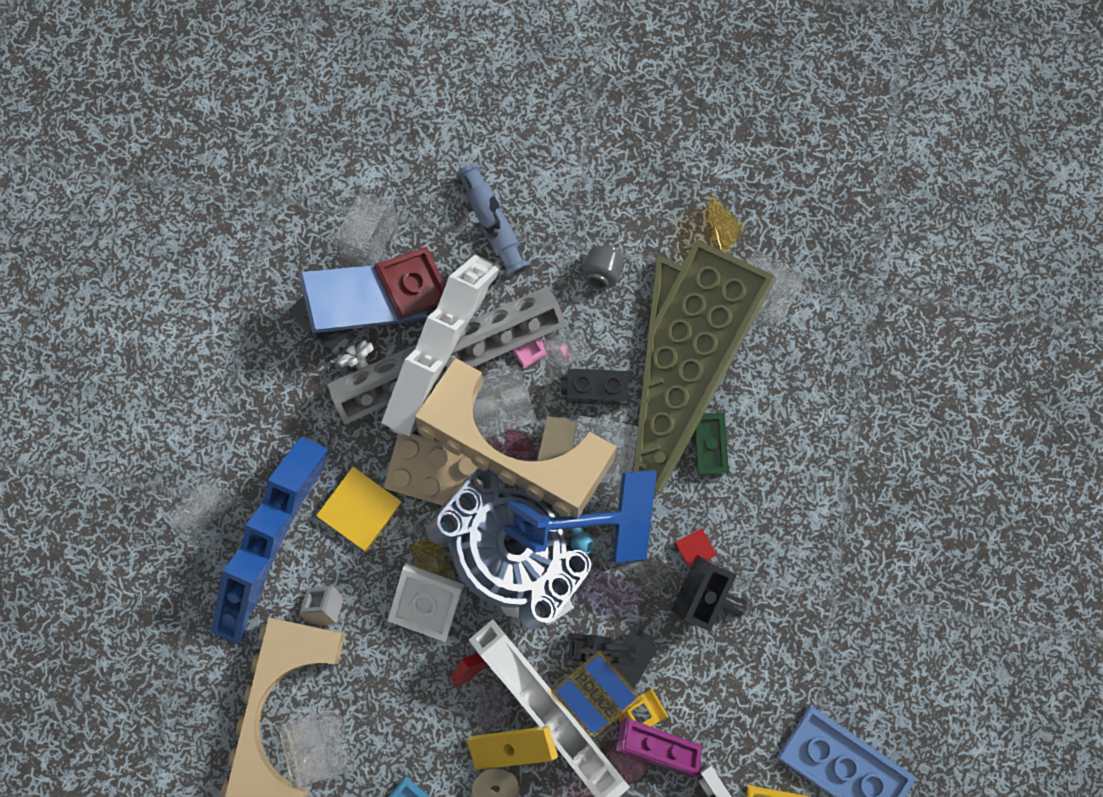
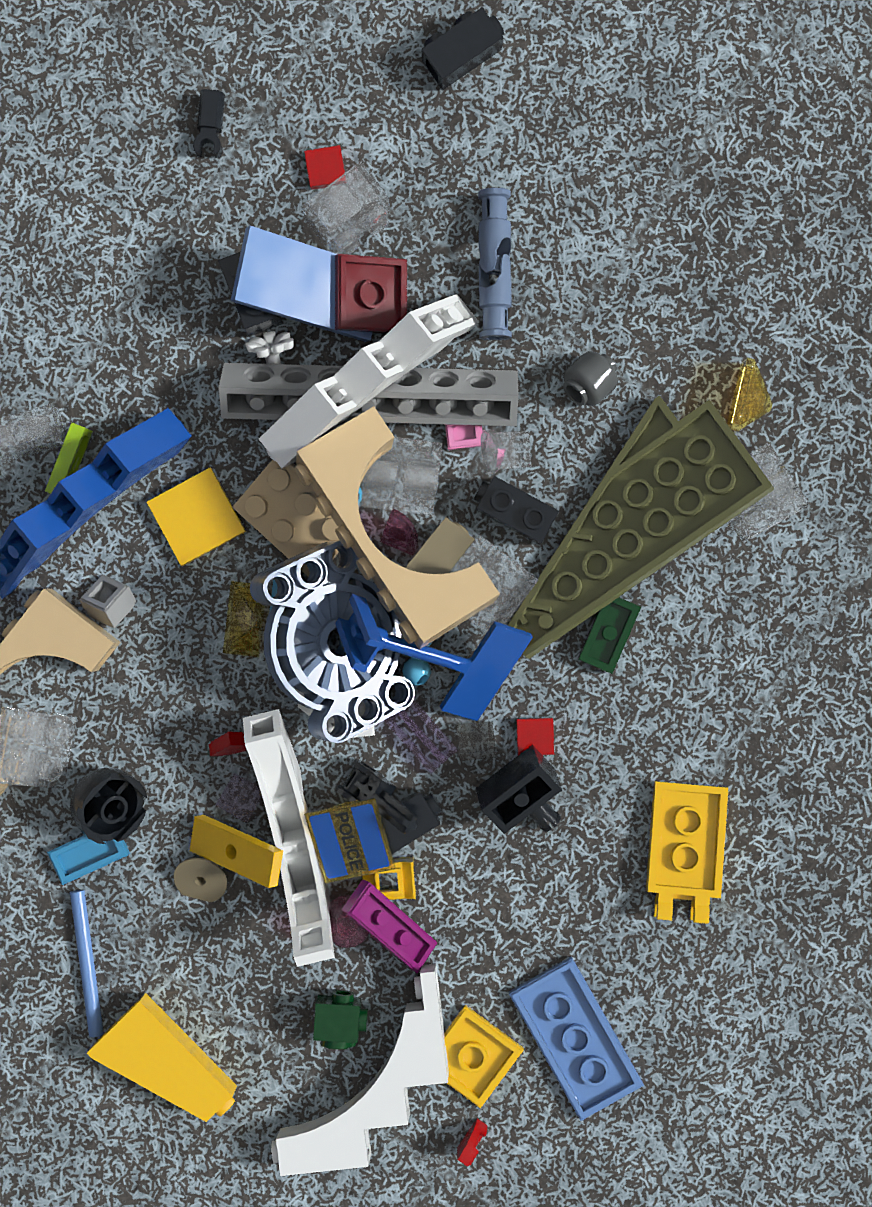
camera: 30 degrees right, 10 degrees up
(234, 217) = (210, 121): none -> black bar
(242, 508) = (70, 455): none -> lime tile
(333, 210) = (324, 166): none -> red tile
(395, 82) = (462, 47): none -> black brick
(395, 762) = (108, 805): none -> black cylinder
(425, 602) = (218, 653): white plate -> none
(851, 576) = (686, 847): none -> yellow tile

